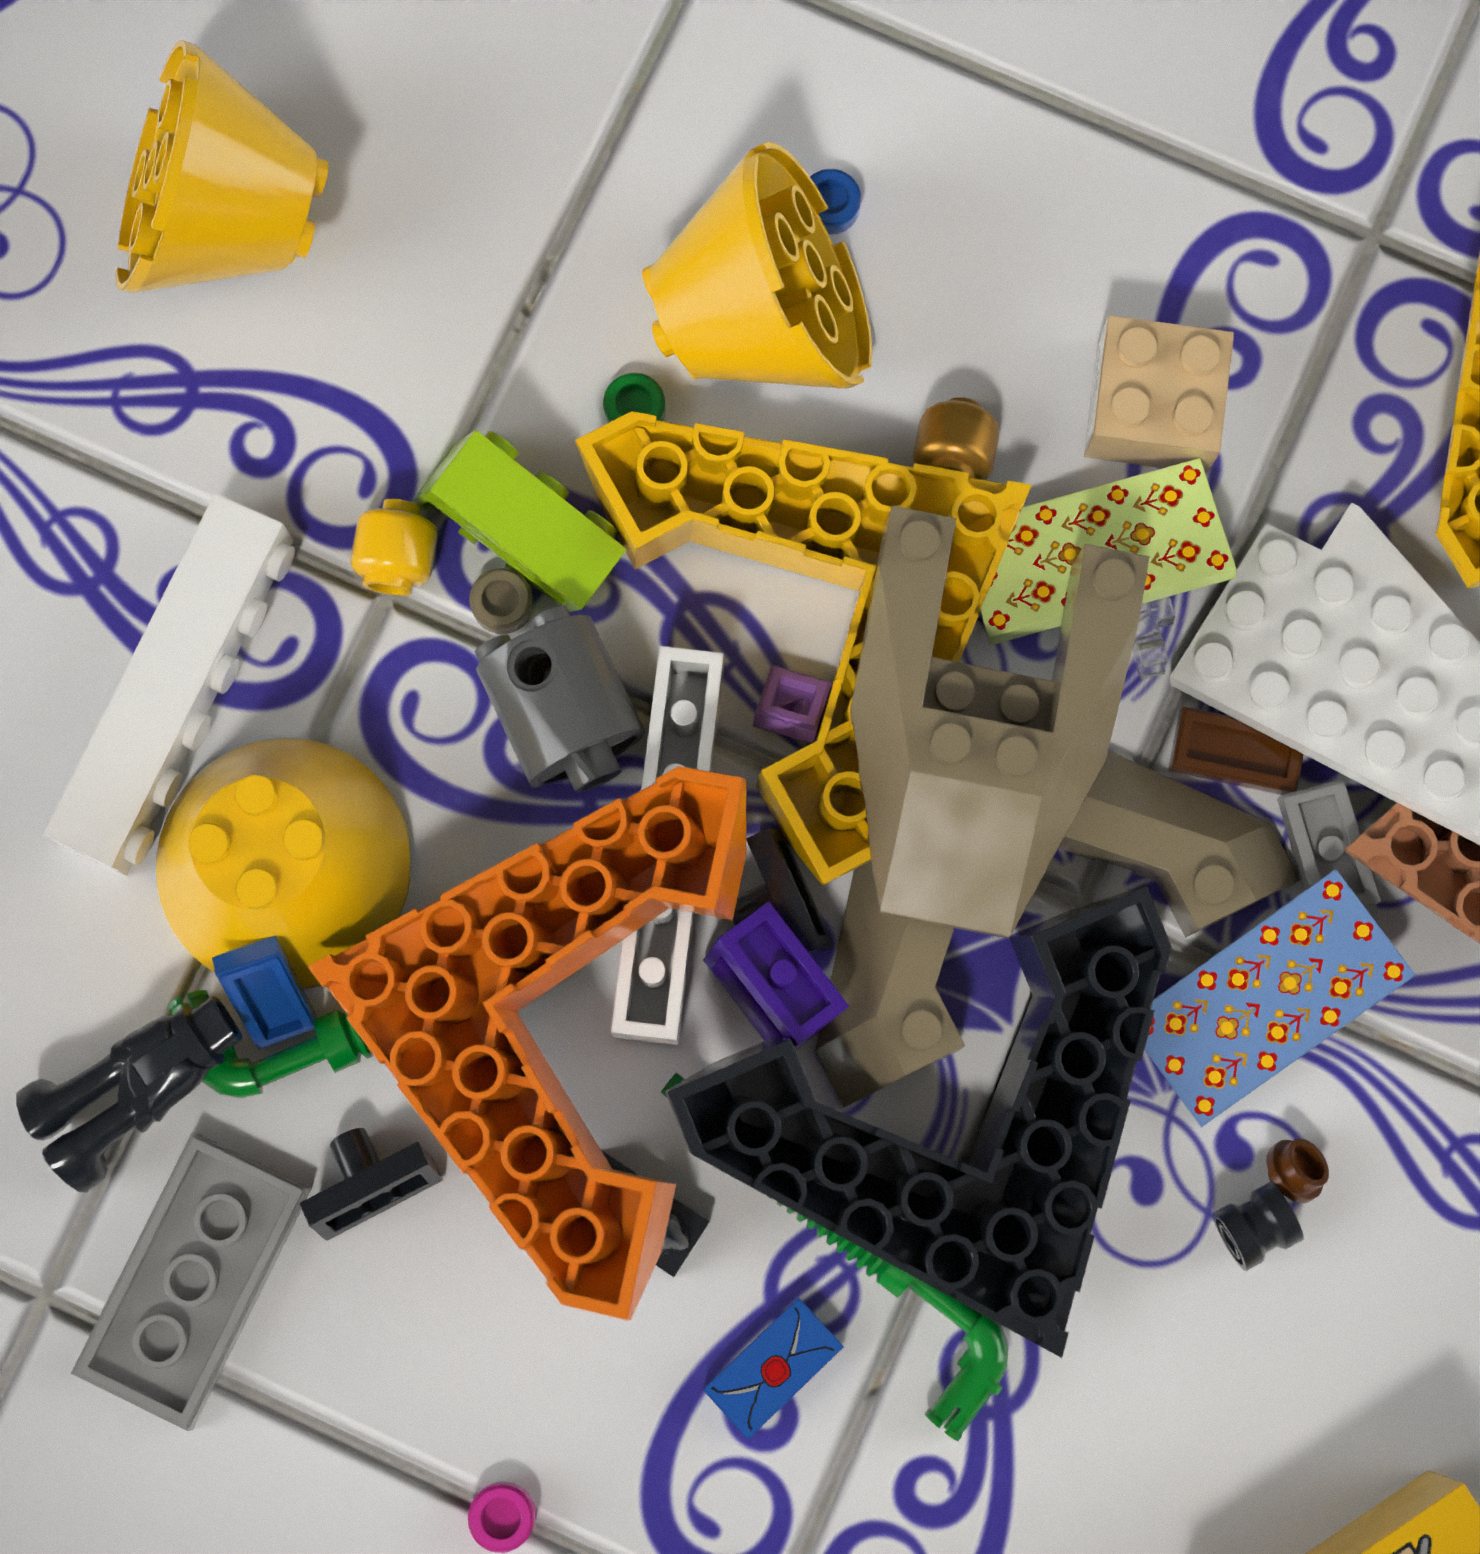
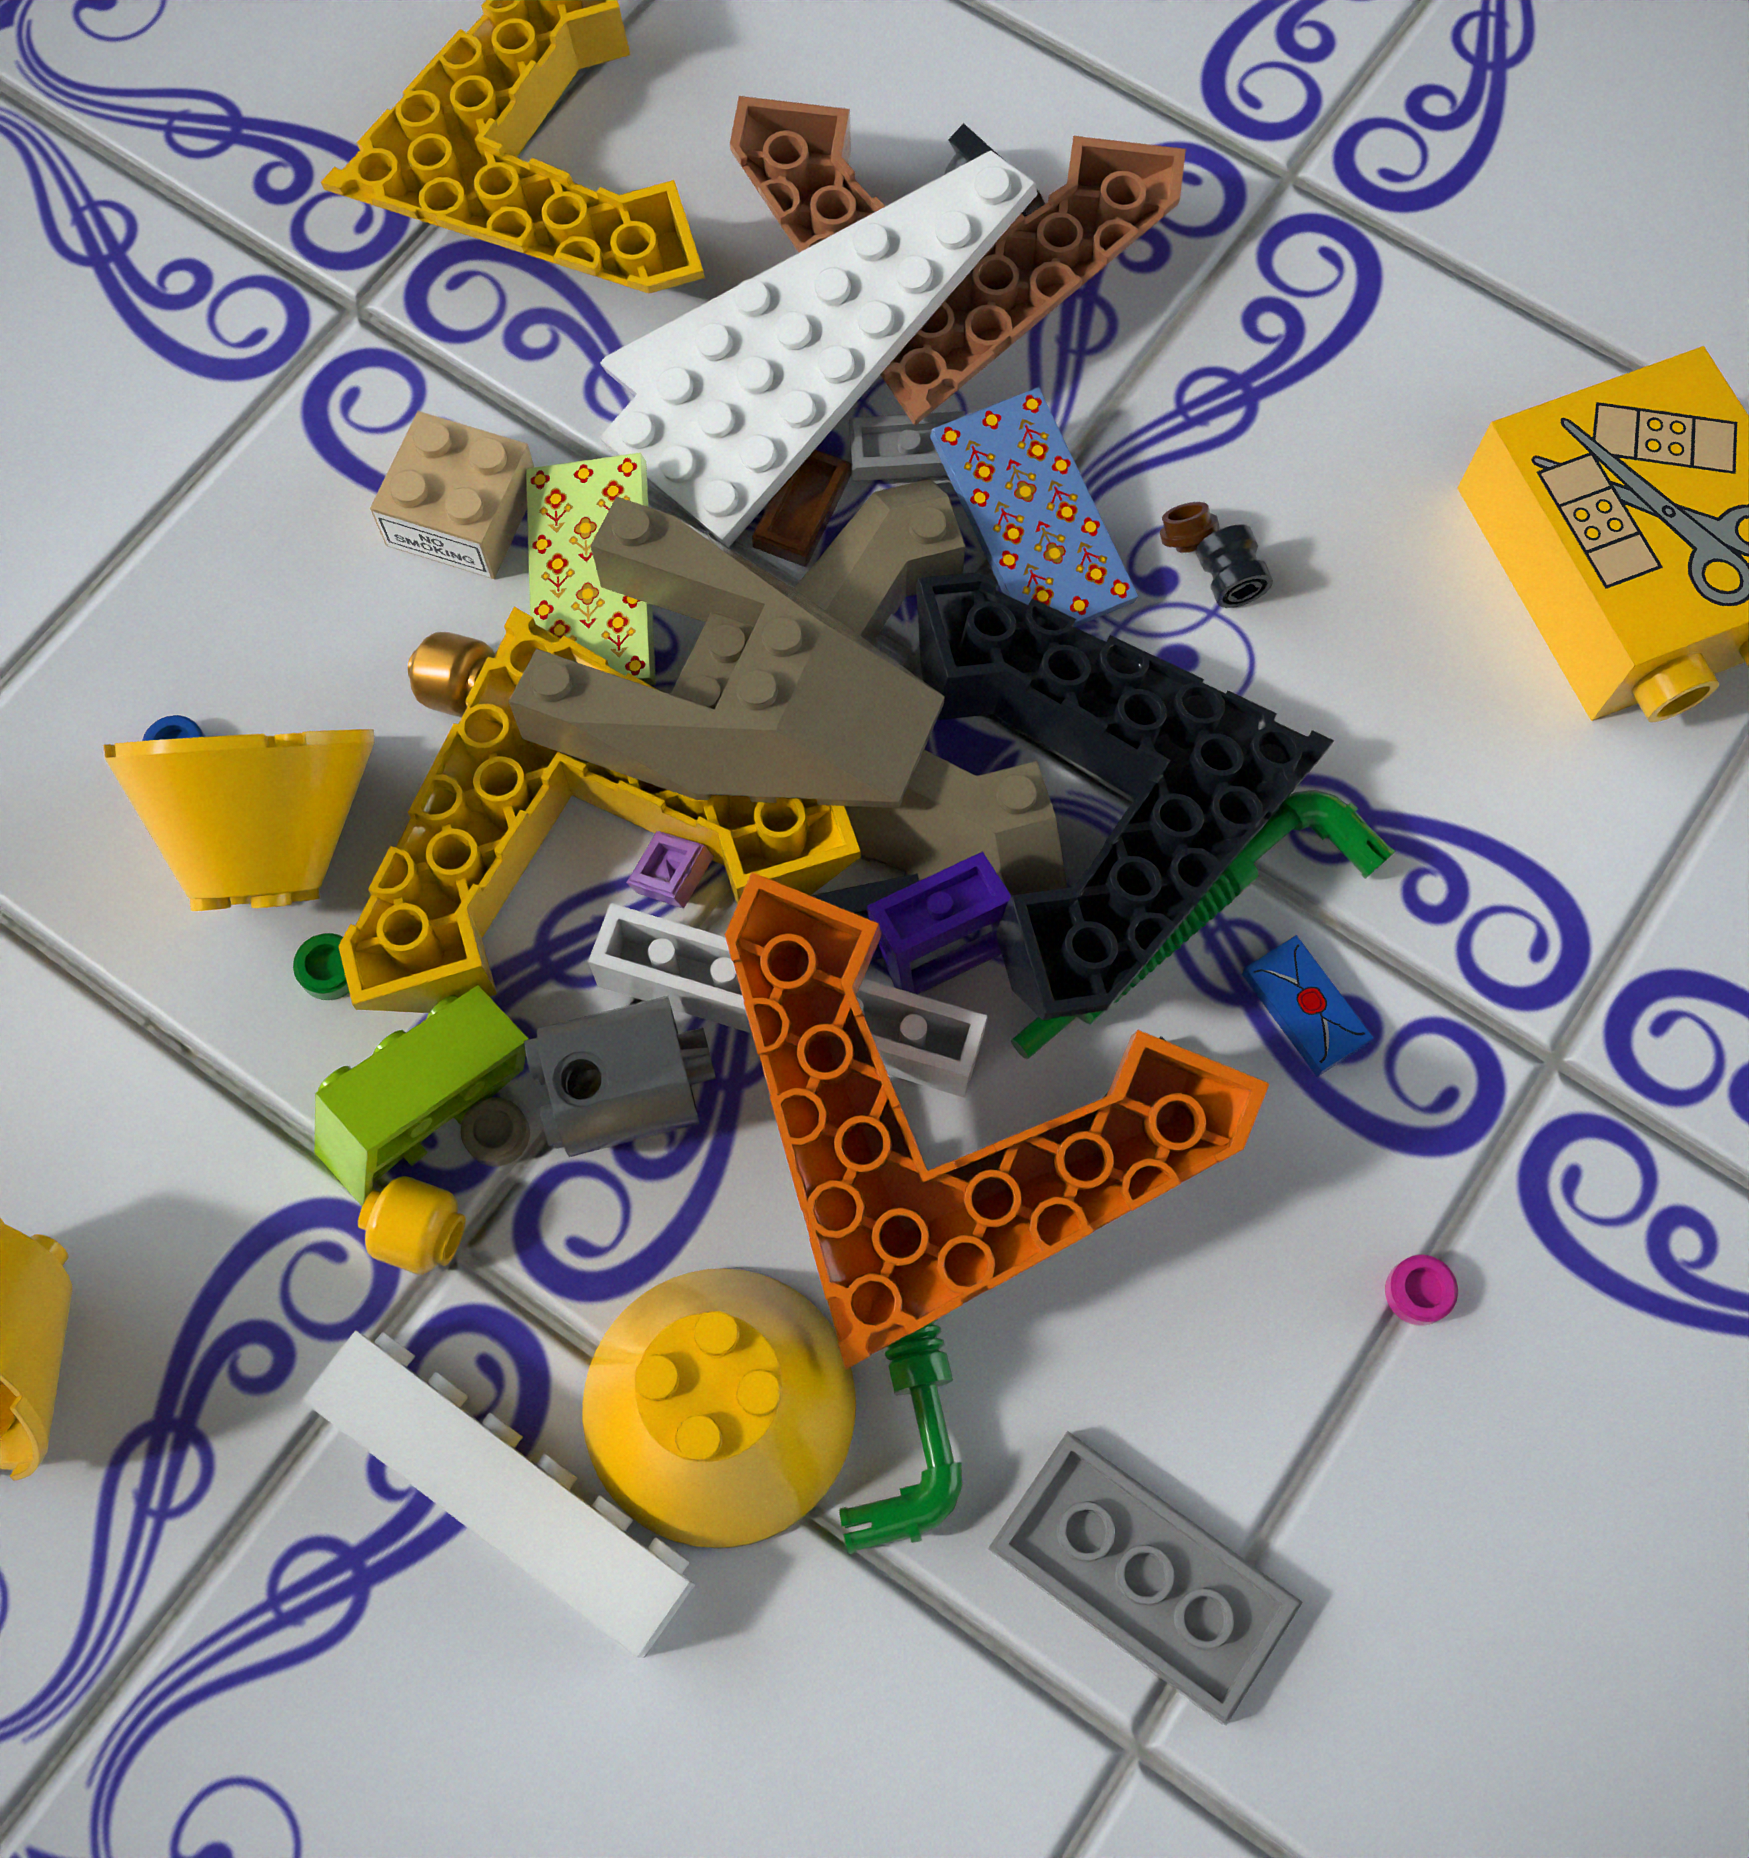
camera: 80 degrees left, 10 degrees down
(153, 1073) = (921, 1564): black piece -> none
(265, 992) = (858, 1431): blue tile -> none
(368, 1183) = (1071, 1365): black tile -> none

